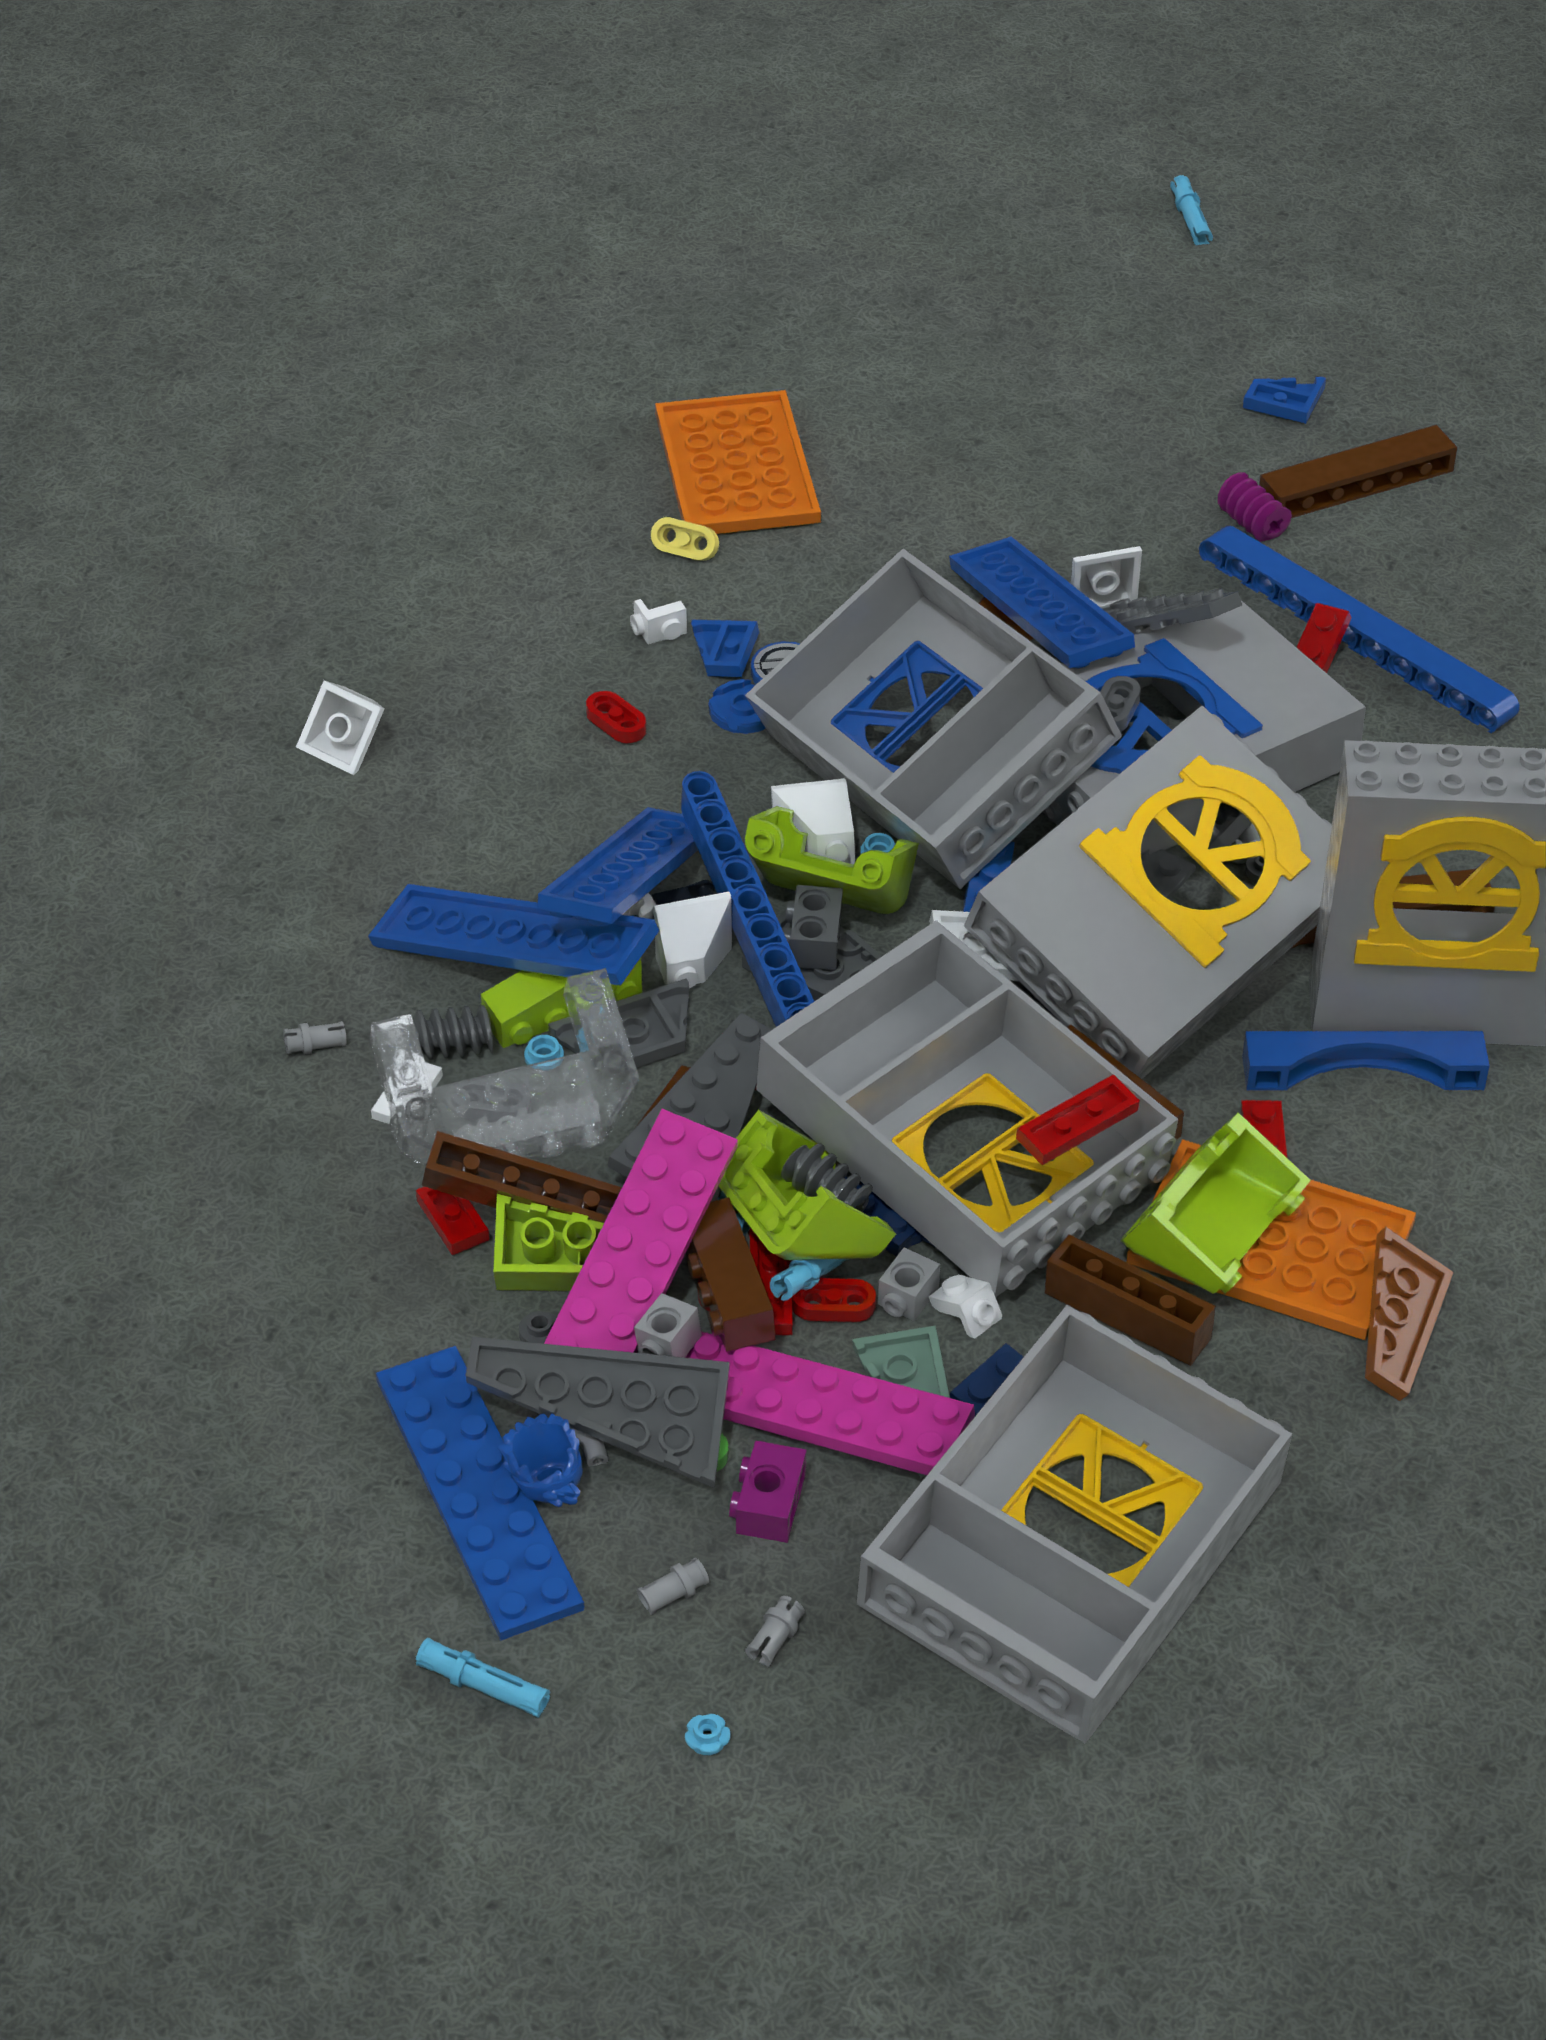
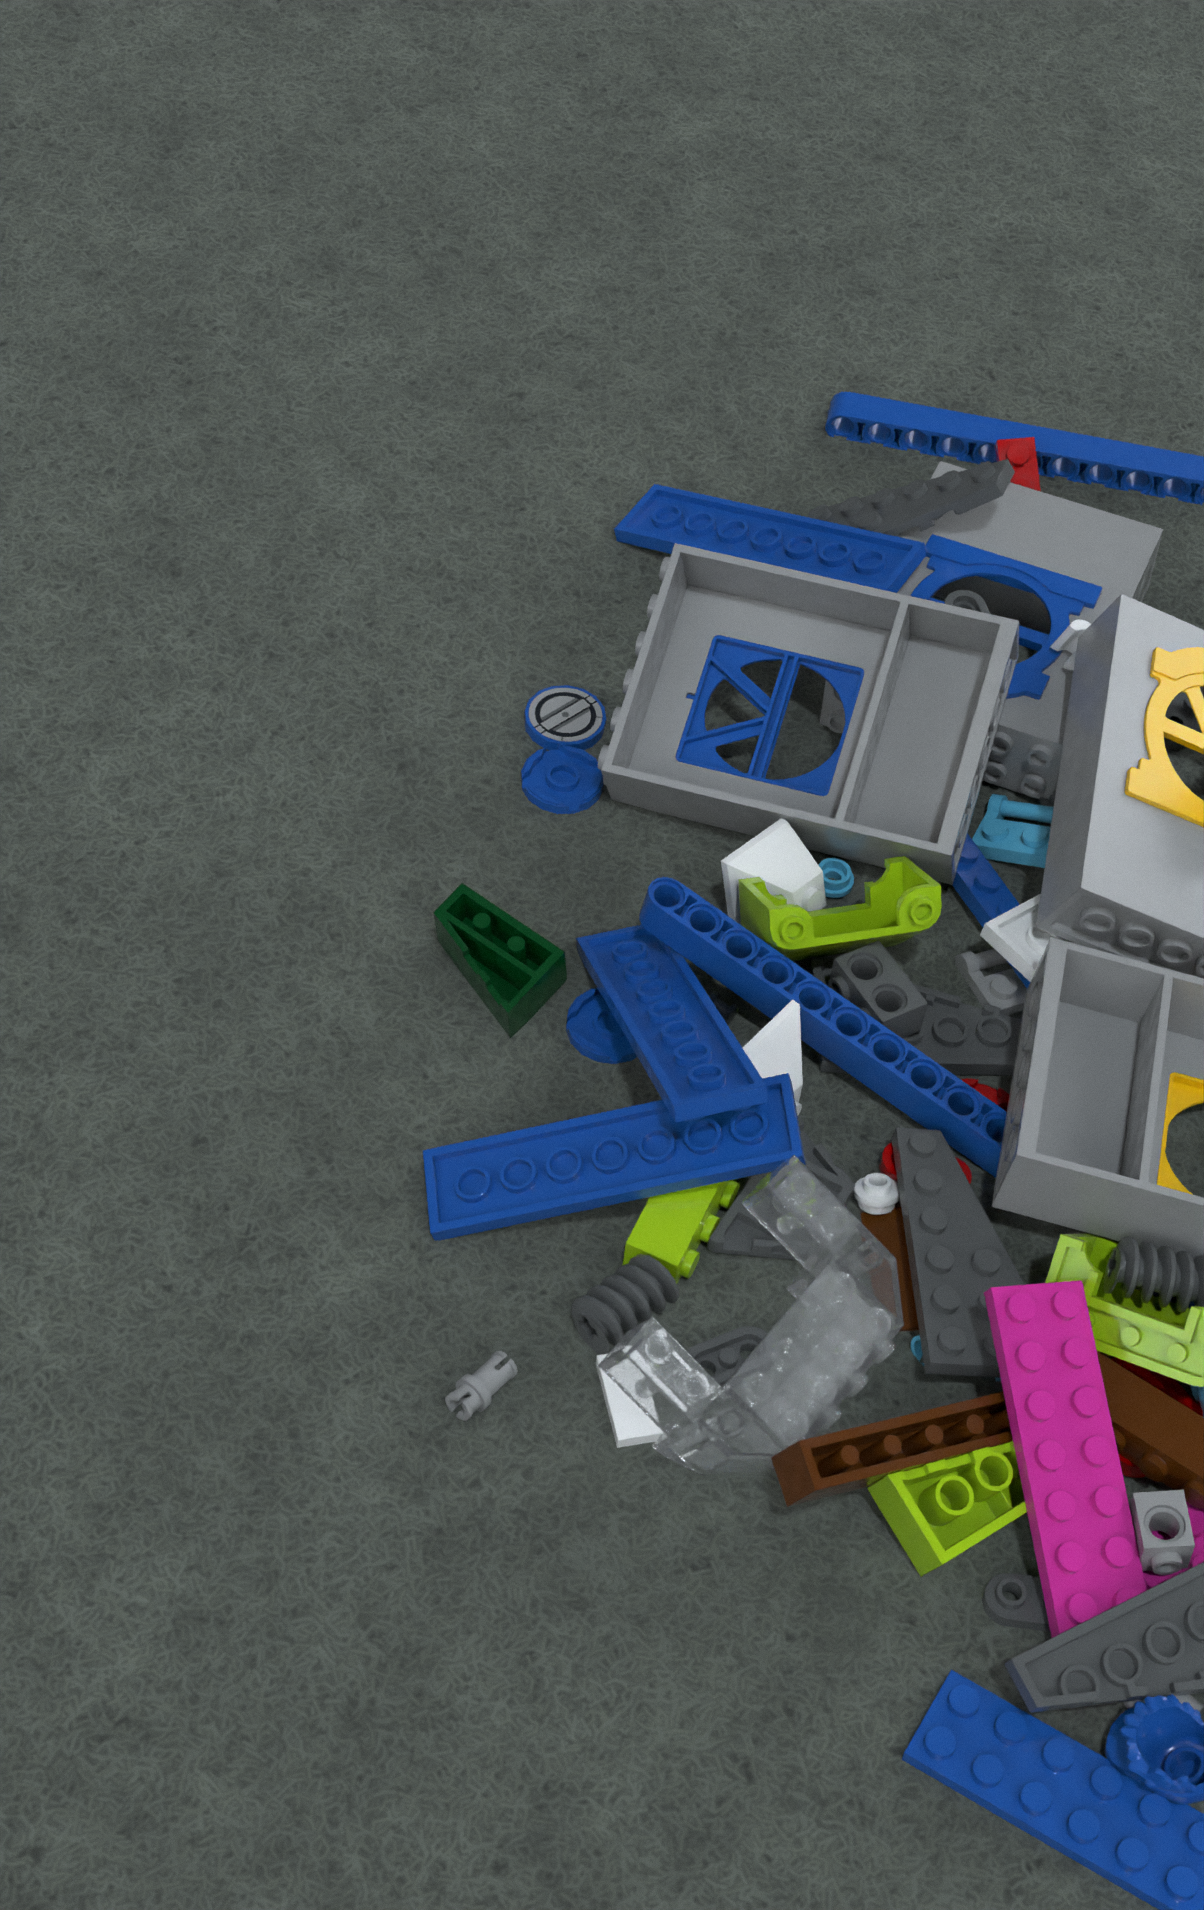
camera: 40 degrees left, 5 degrees up
(340, 727) = (188, 998): white slope -> none
(453, 1219) = (820, 1523): red plate -> none
(542, 1045) = (730, 1263): medium azure plate -> none
(571, 794) = (499, 957): none -> dark green wedge
(622, 719) = (454, 851): red plate -> none
(660, 622) = (404, 727): white bracket -> none
(686, 539) = (344, 618): light yellow plate -> none
(694, 1050) = (876, 1193): none -> white plate
(725, 645) = (486, 721): blue wing -> none
(737, 462) = (317, 512): orange plate -> none
(1108, 575) = (790, 482): white slope -> none
(1189, 204) = (493, 72): medium azure pin -> none
(1253, 507) = (839, 366): magenta piece -> none
(1284, 397) = (758, 241): blue wing -> none
(1362, 471) = (889, 295): reddish brown brick -> none

